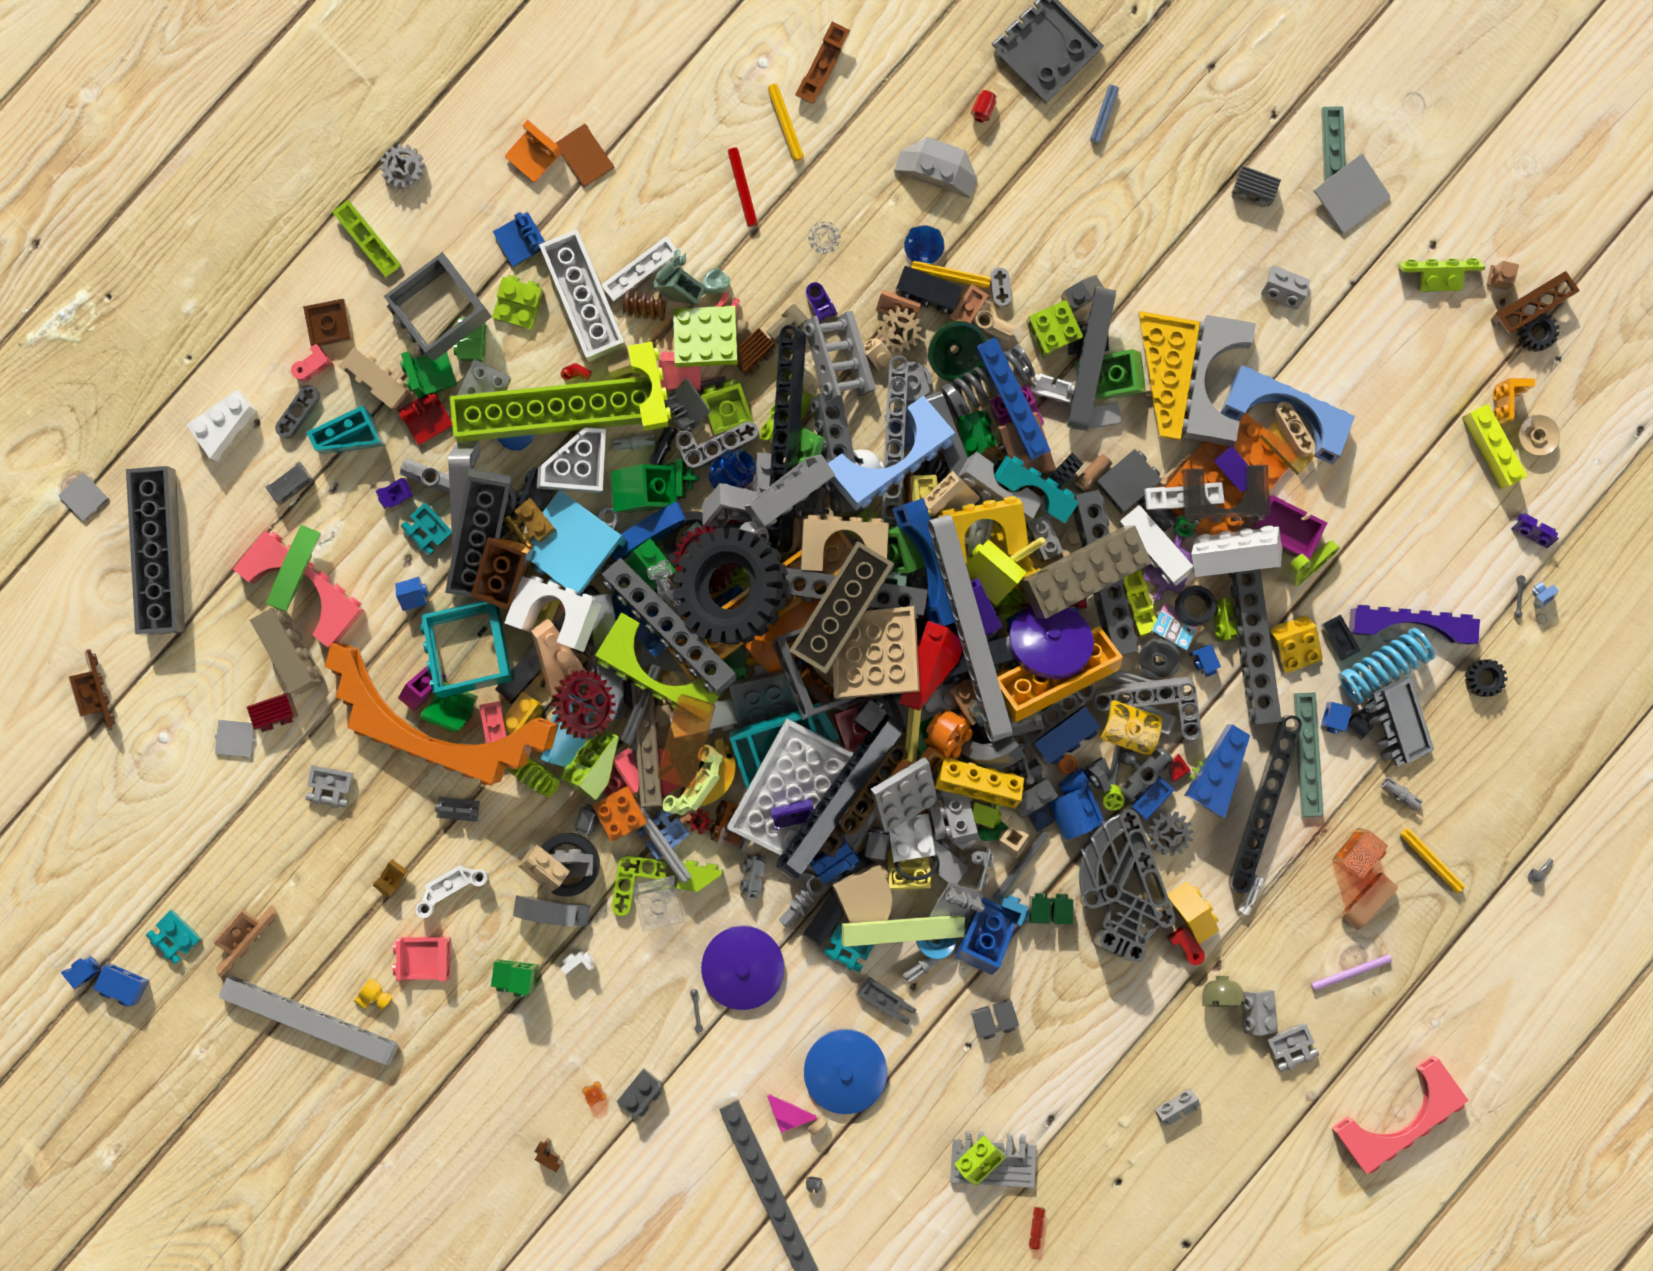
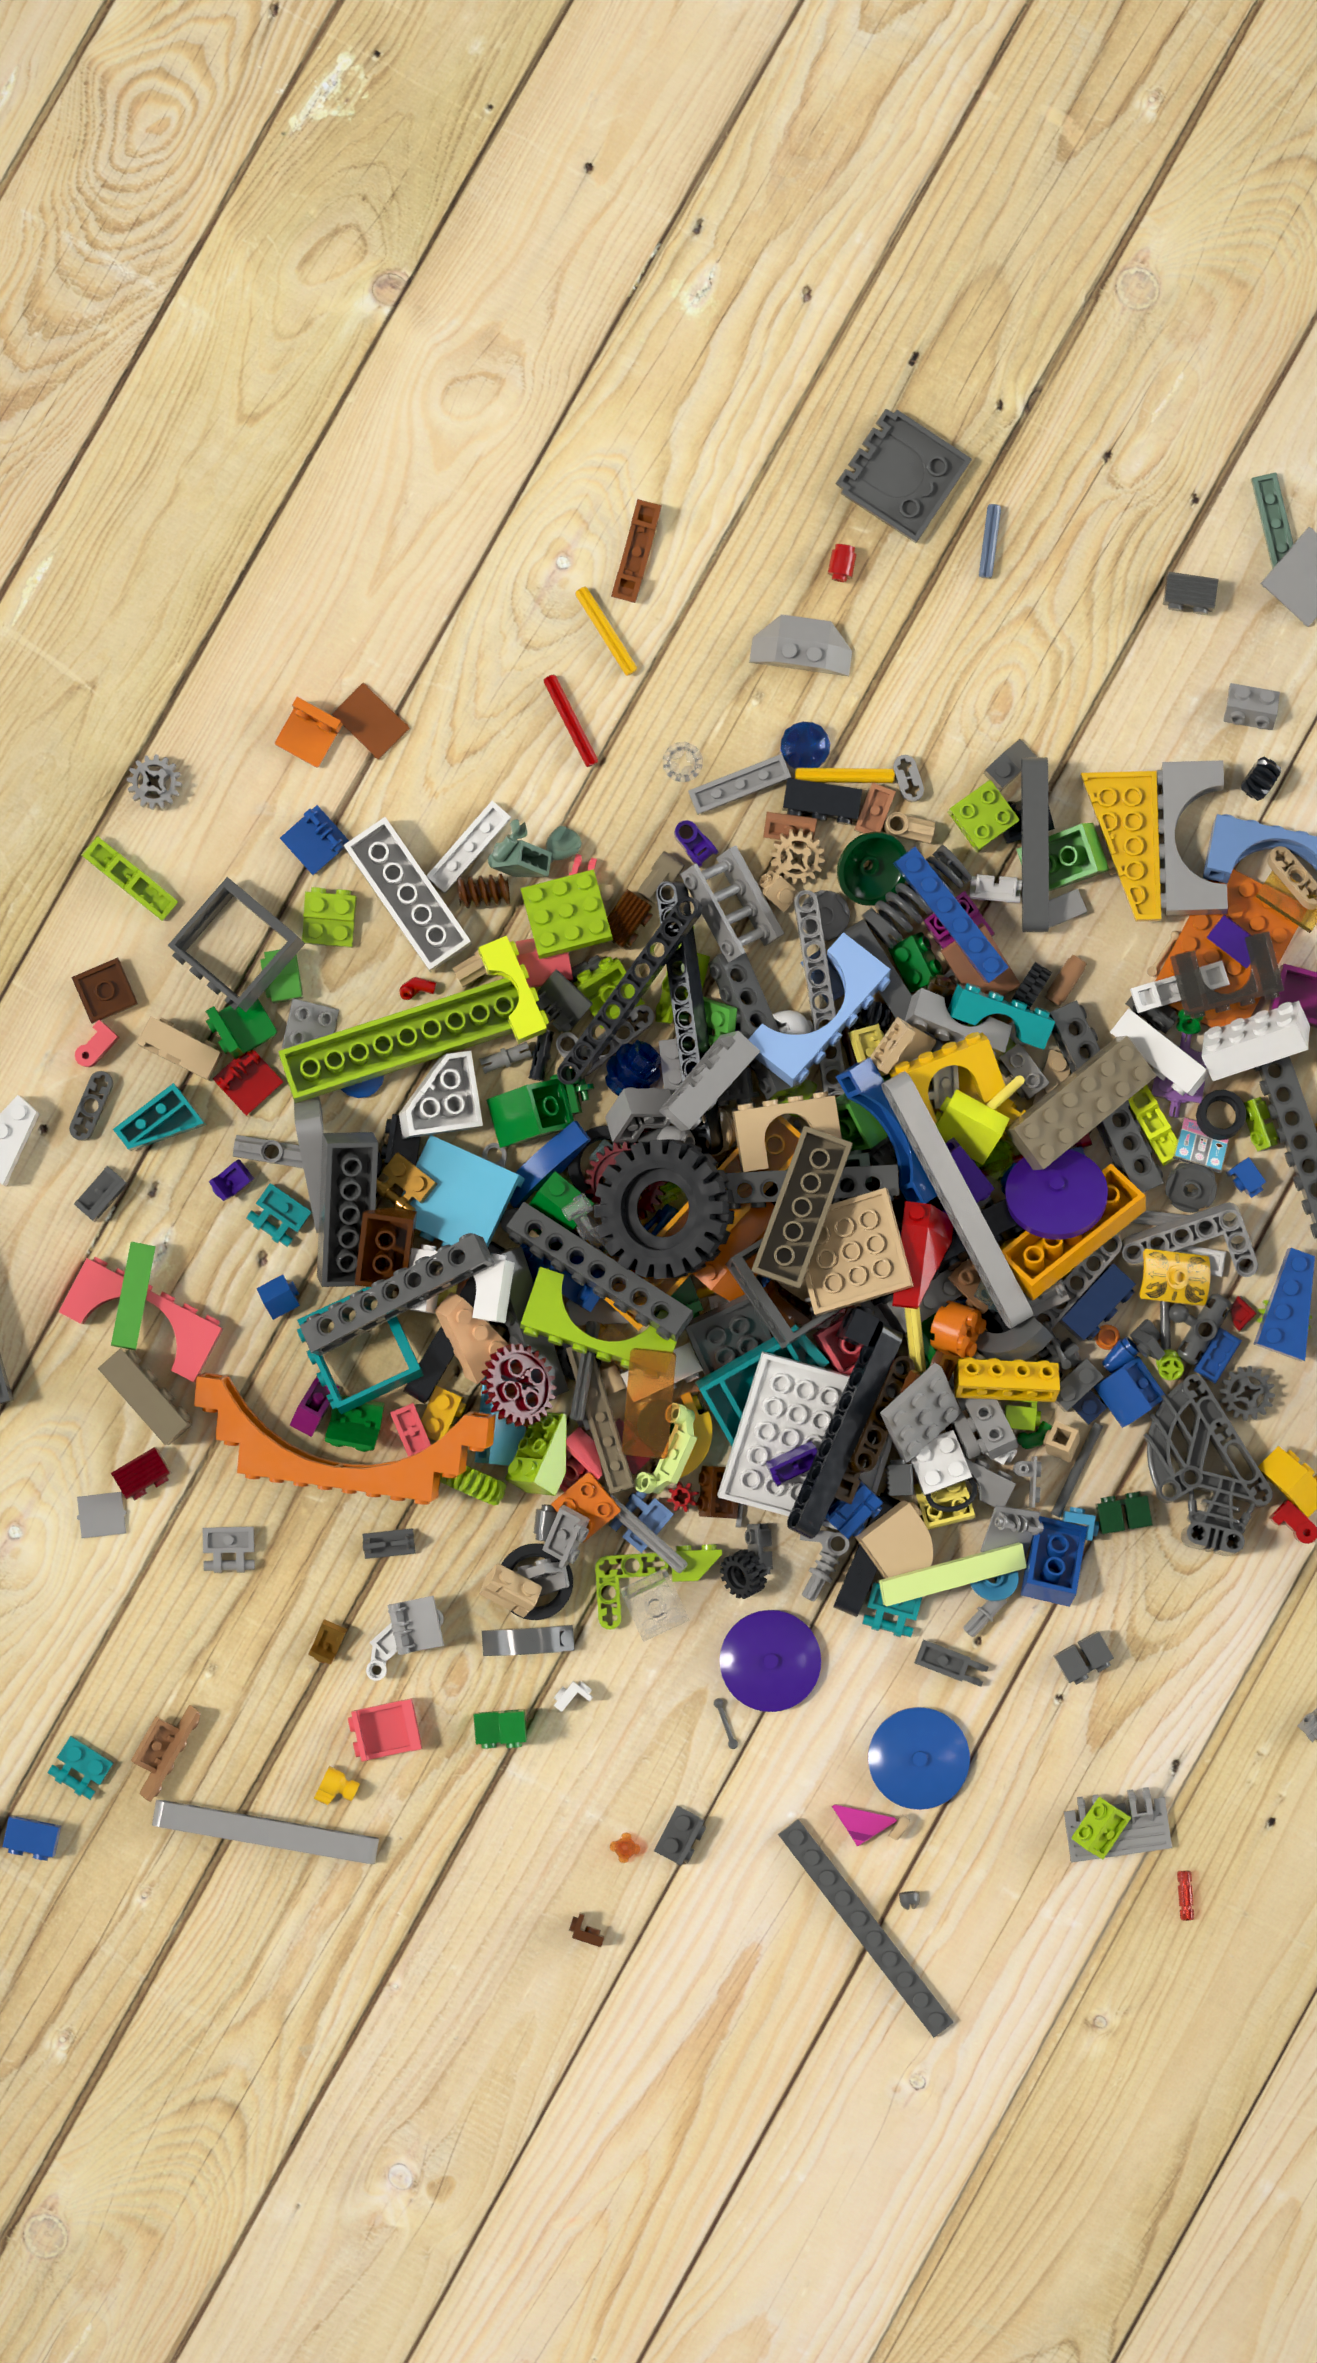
camera: 15 degrees left, 0 degrees up
(462, 880) = (415, 1625): none -> light grey hinge
(569, 595) = (476, 1260): none -> dark grey brick
(597, 834) = (565, 1535): none -> light grey bracket
(735, 894) = (752, 1569): none -> black tyre
(751, 404) = (618, 996): none -> black beam
(865, 264) = (739, 784): none -> light grey plate
(1127, 480) = (1109, 980): dark grey brick -> none
(1282, 344) = (1261, 778): none -> black gear

